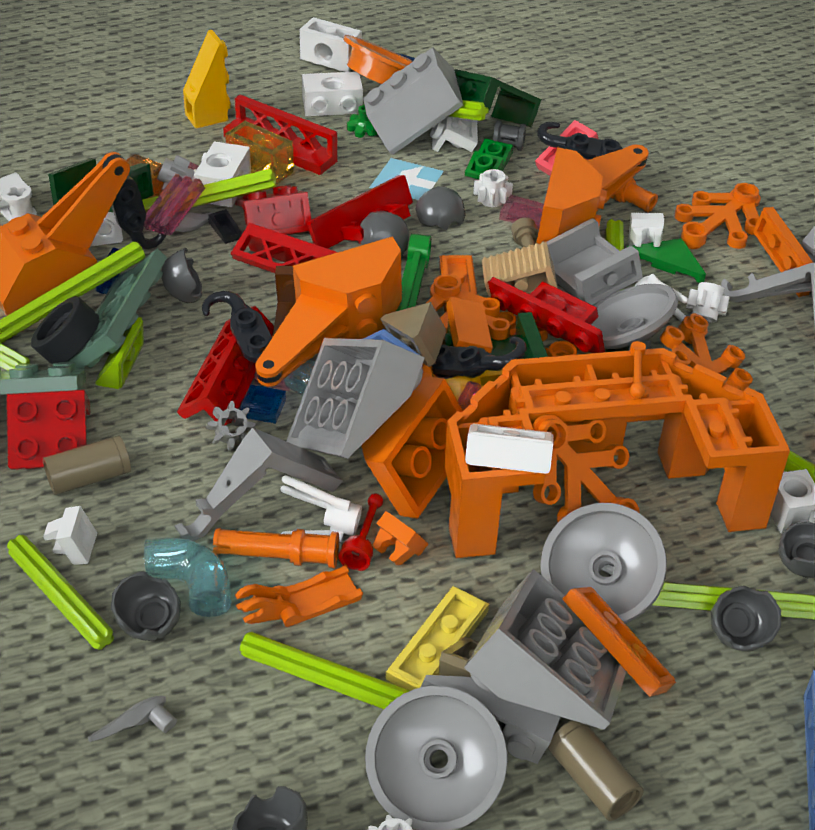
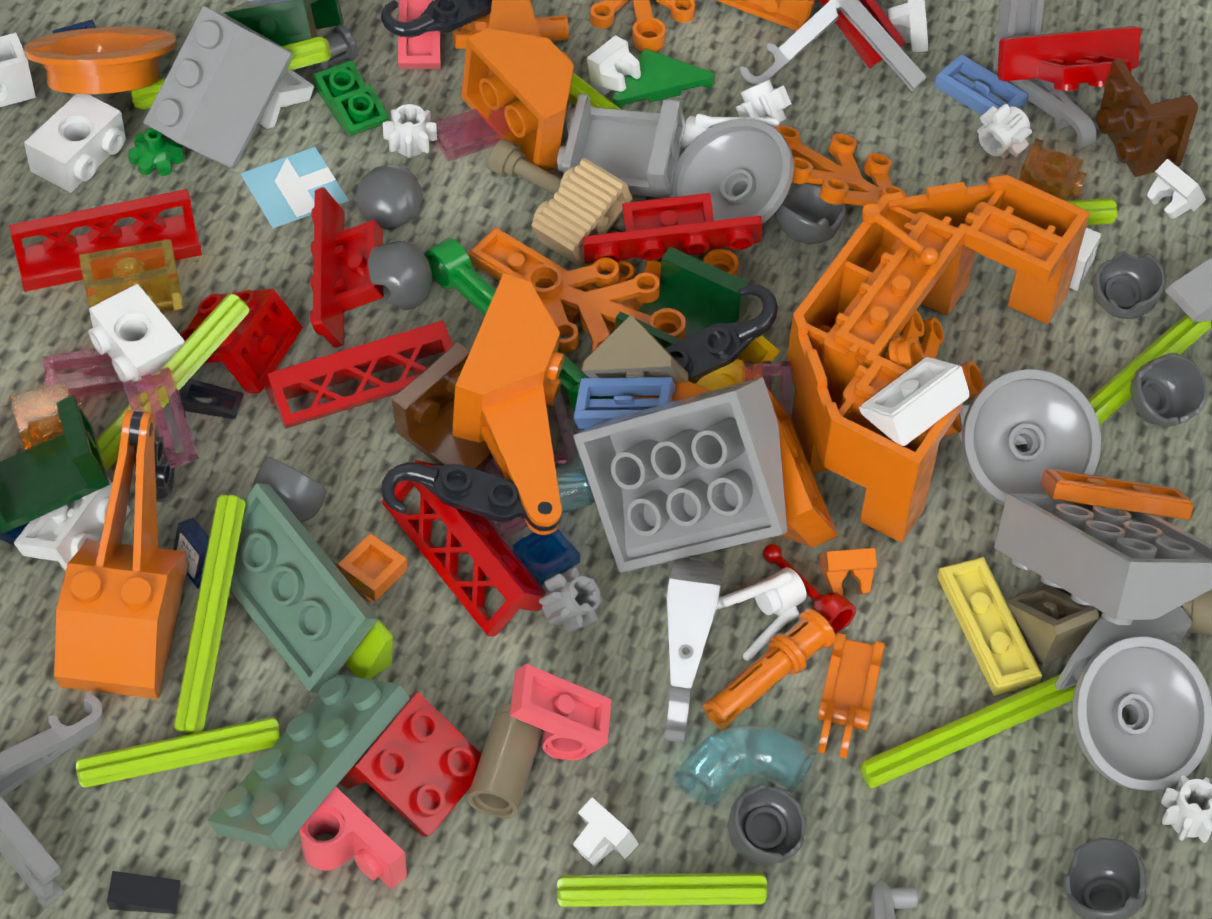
camera: 50 degrees left, 10 degrees up
(65, 330) = (249, 646): black tyre -> none
(135, 461) = (570, 715): none -> coral plate
(166, 336) = (372, 567): none -> orange tile
(171, 167) = (99, 383): light grey gear -> none
(468, 324) = (651, 308): orange tile -> none

